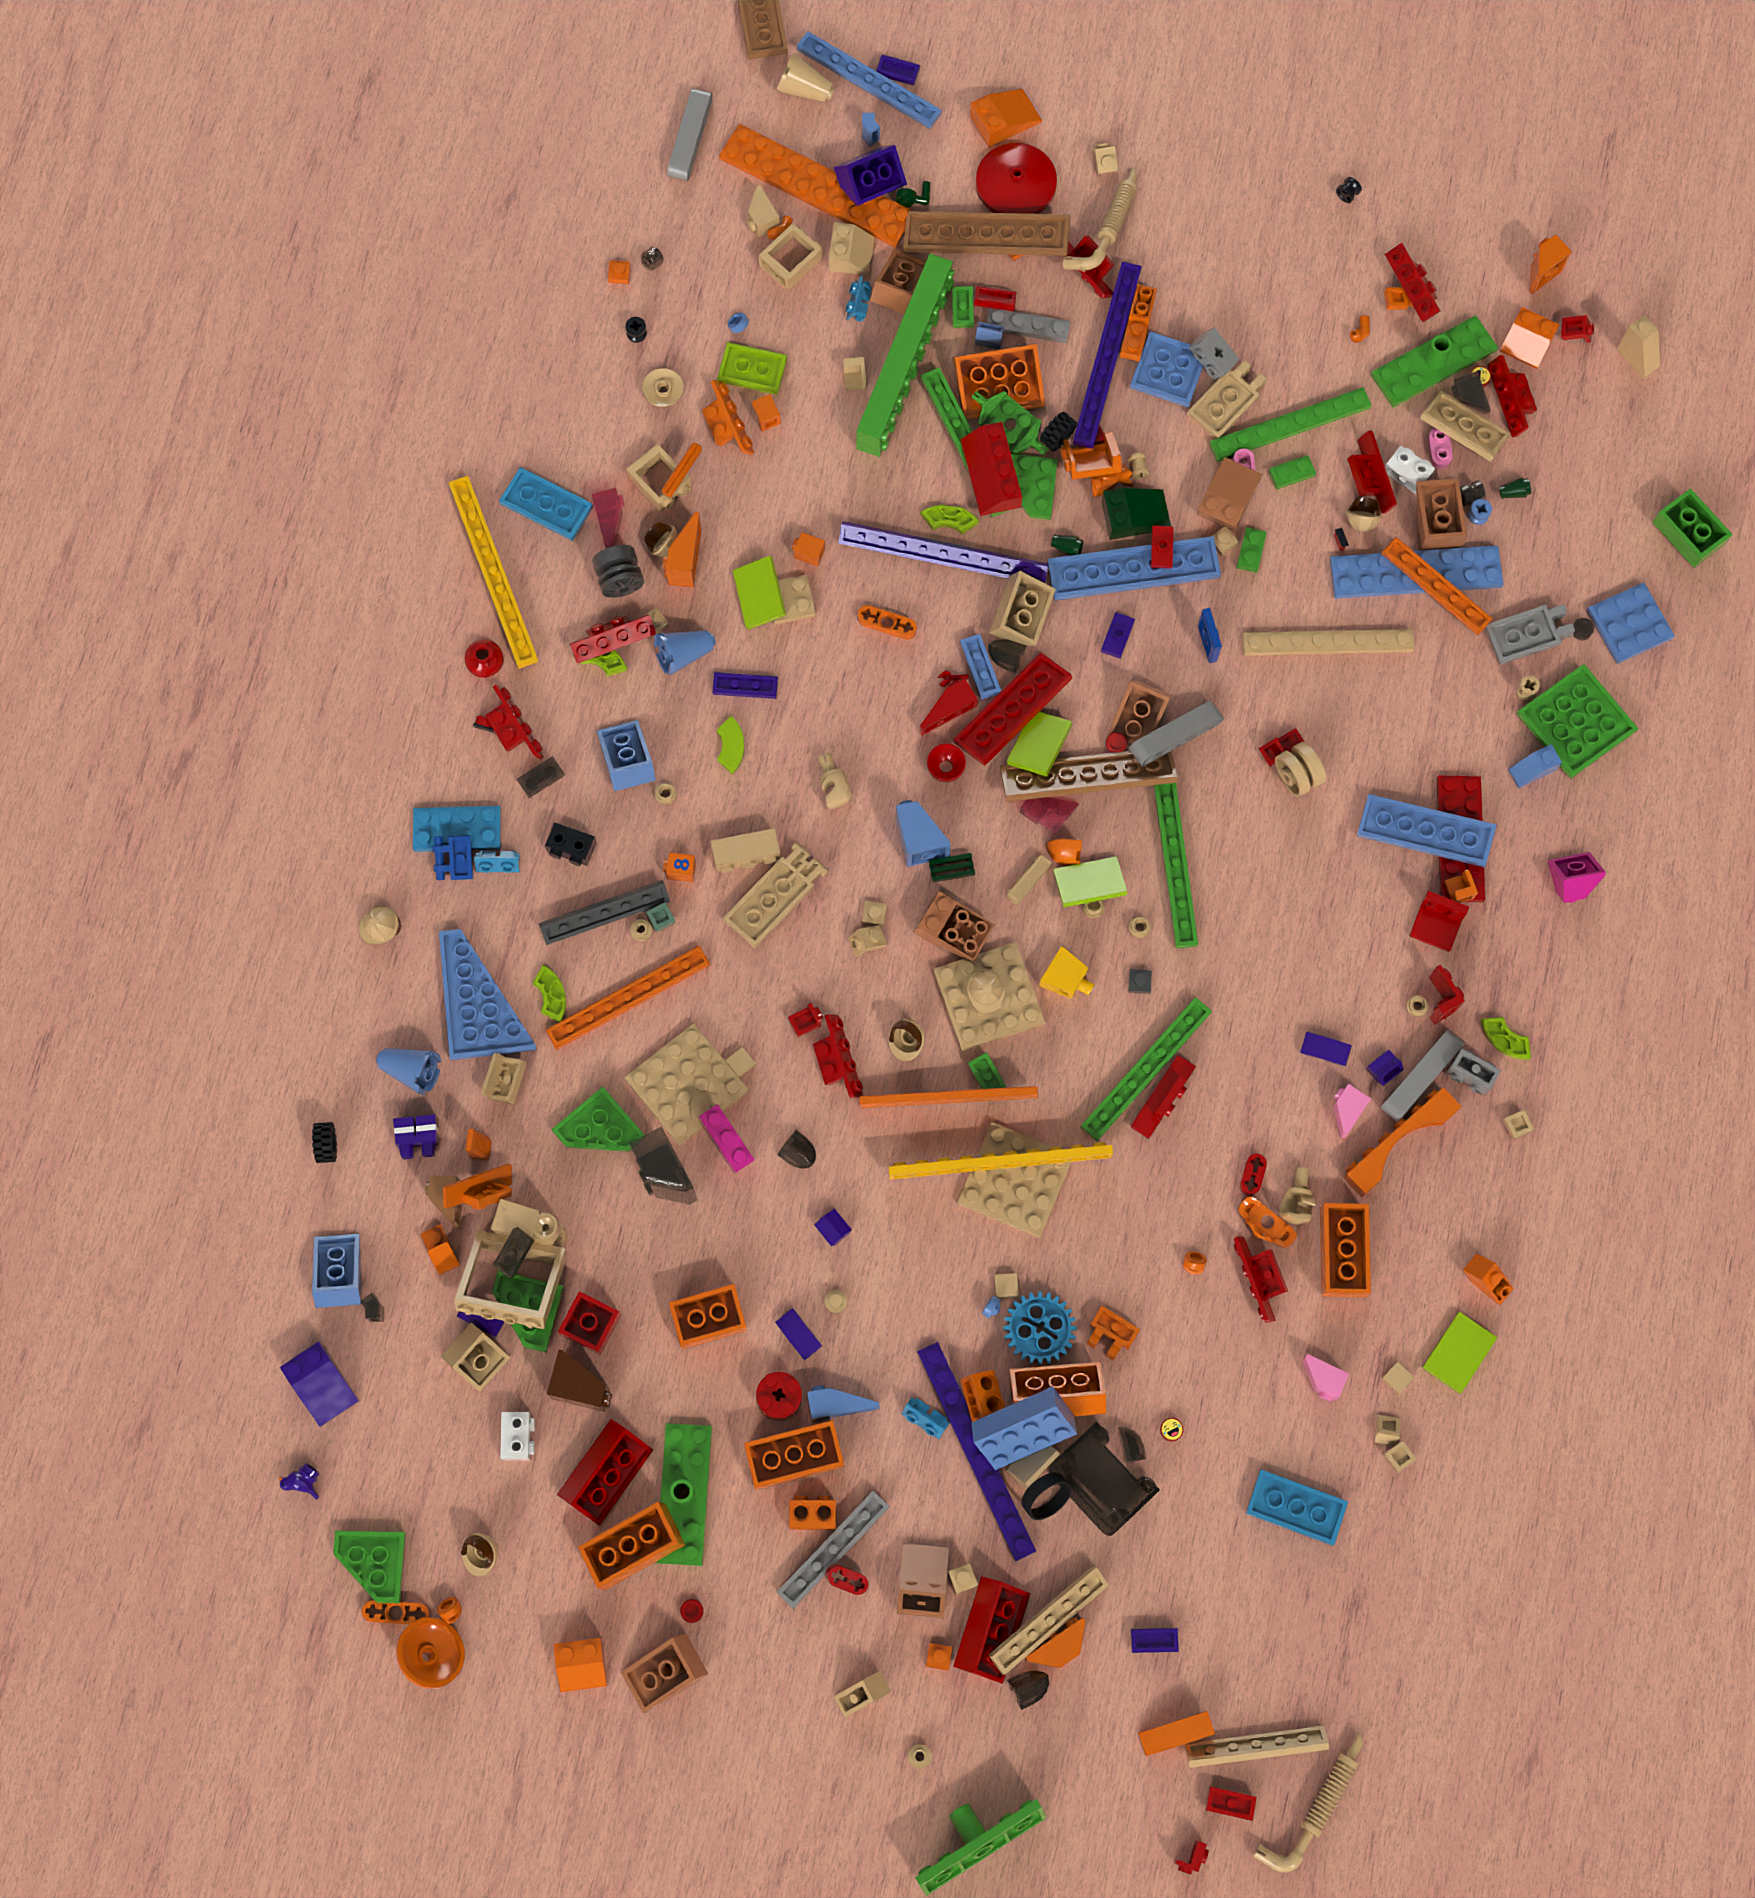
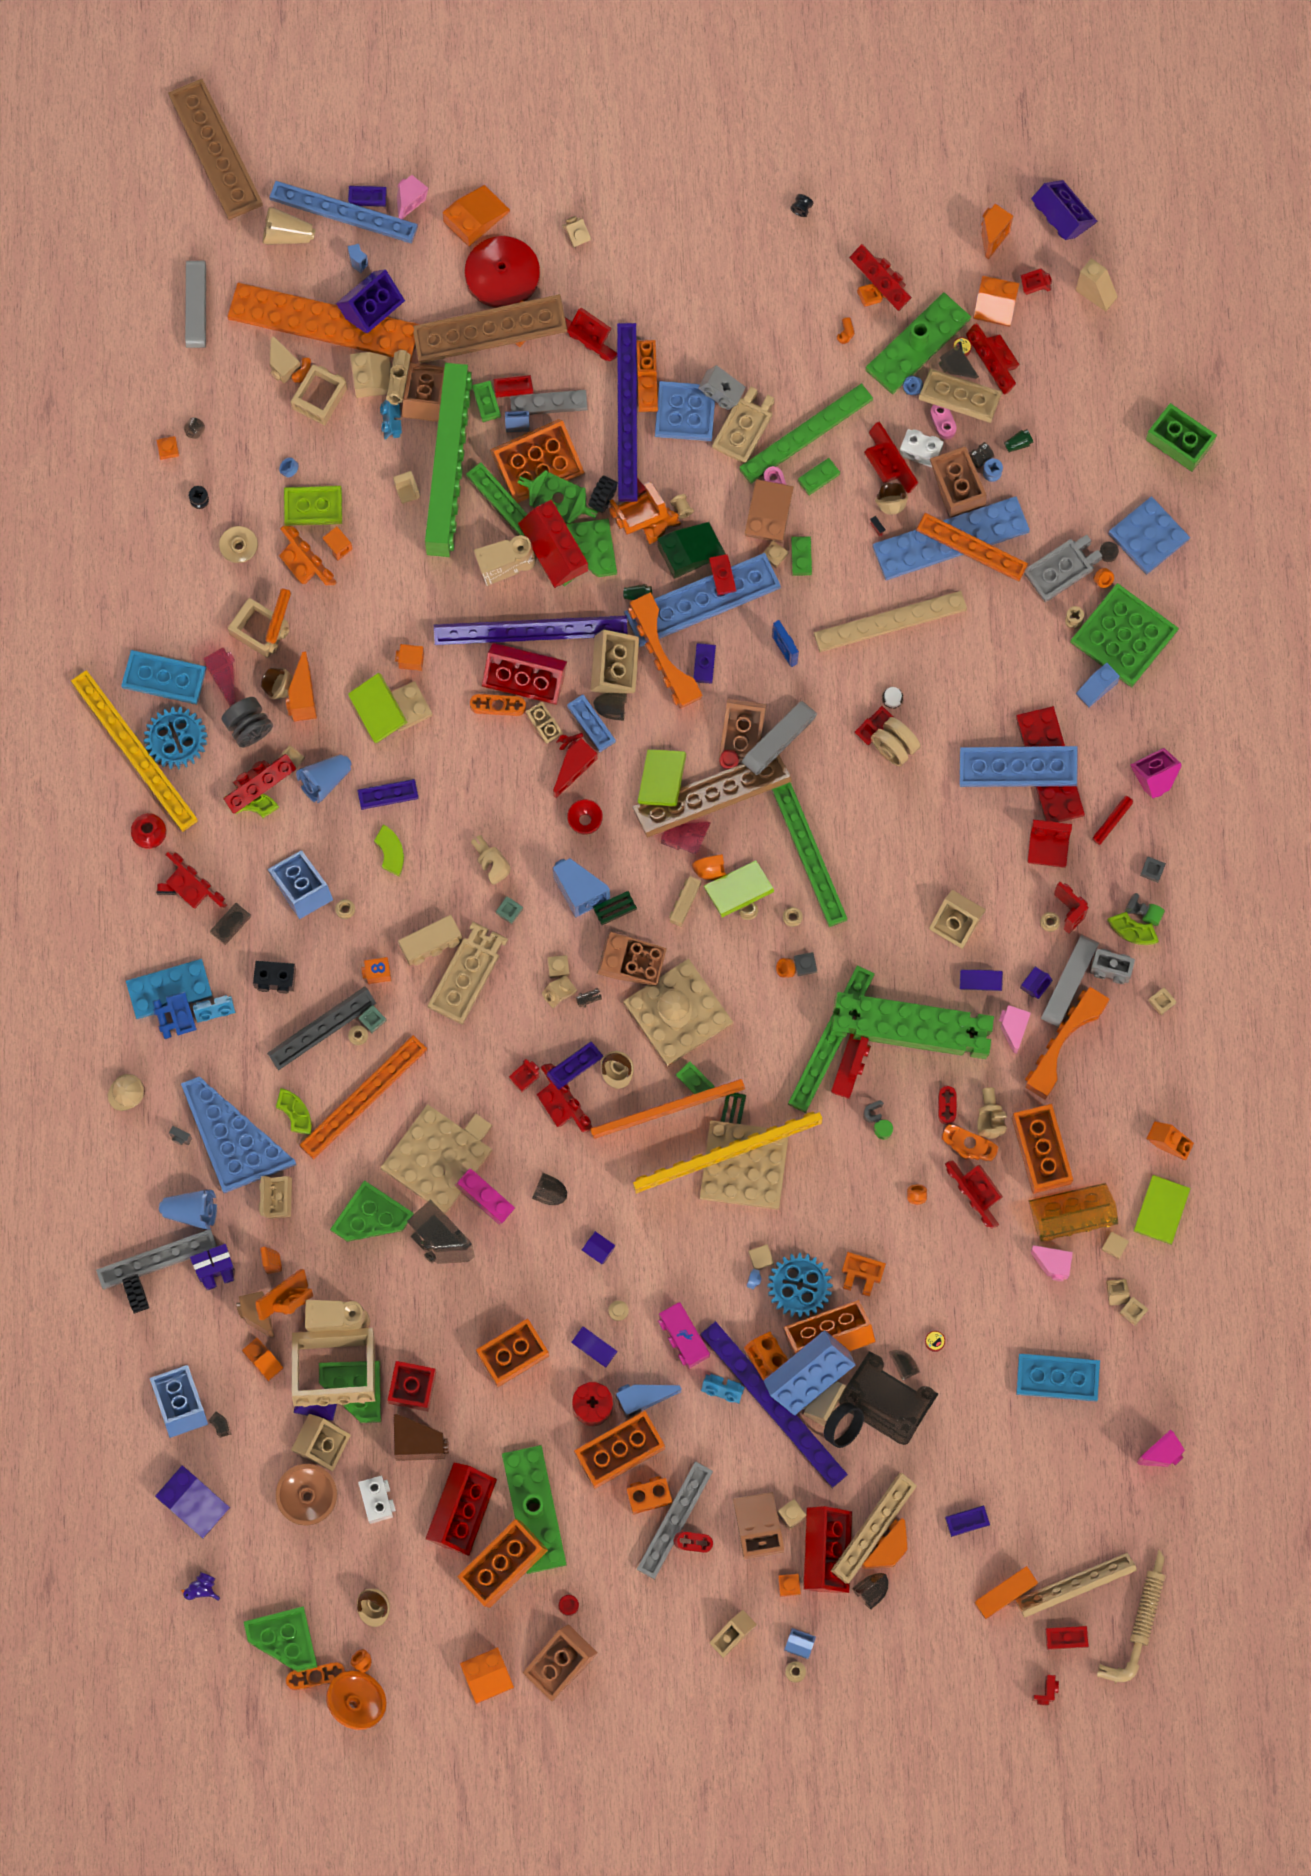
camera: 15 degrees left, 0 degrees up
(358, 1111) = (156, 1259): none -> light grey plate
(421, 987) = (180, 1136): none -> dark grey plate
(426, 1408) = (303, 1480): none -> nougat dish
(513, 1252) = (330, 1342): clear smoke plate -> none
(520, 571) = (192, 731): none -> dark azure gear
(838, 840) = (509, 910): none -> sand green plate
(862, 1023) = (574, 1065): none -> dark purple tile
(877, 259) = (398, 377): none -> tan piece
(895, 955) = (587, 998): none -> clear smoke pin
(898, 1348) = (683, 1335): none -> dark pink brick
(908, 197) = (409, 313): dark green plate -> none
(923, 596) = (524, 673): none -> red slope
(930, 653) = (544, 723): none -> tan slope
(933, 1725) = (800, 1643): none -> medium blue piece
(936, 472) = (505, 559): none -> tan piece
(942, 79) = (410, 195): none -> bright pink slope
(949, 516) = (527, 595): lime tile -> none
(978, 1842) = (864, 1727): bright green plate -> none
(1012, 709) = (630, 753): red plate -> none
(1026, 1103) = (736, 1096): none -> dark green tile
(1066, 975) = (740, 976): yellow torso -> none
(1088, 653) = (683, 687): none -> orange arch
(1110, 226) = (599, 294): tan piece -> none
(1117, 979) = (785, 968): none -> orange tile
(1176, 1180) = (882, 1128): none -> leg
(1238, 1078) = (912, 1025): none -> bright green brick
(1309, 723) = (892, 697): none -> white piece
(1317, 976) = (957, 919): none -> tan slope
(1361, 1329) = (1073, 1212): none -> clear yellow slope
(1393, 1624) = (1163, 1452): none -> dark pink slope
(1417, 403) = (913, 385): none -> medium blue tile
(1461, 887) = (1061, 809): orange panel -> none
(1514, 914) = (1112, 820): none -> red axle
(1529, 1026) = (1151, 913): none -> leg
(1544, 979) = (1153, 869): none -> dark grey plate
(1570, 654) = (1103, 578): none -> orange tile
(1625, 261) = (1063, 209): none -> dark purple slope

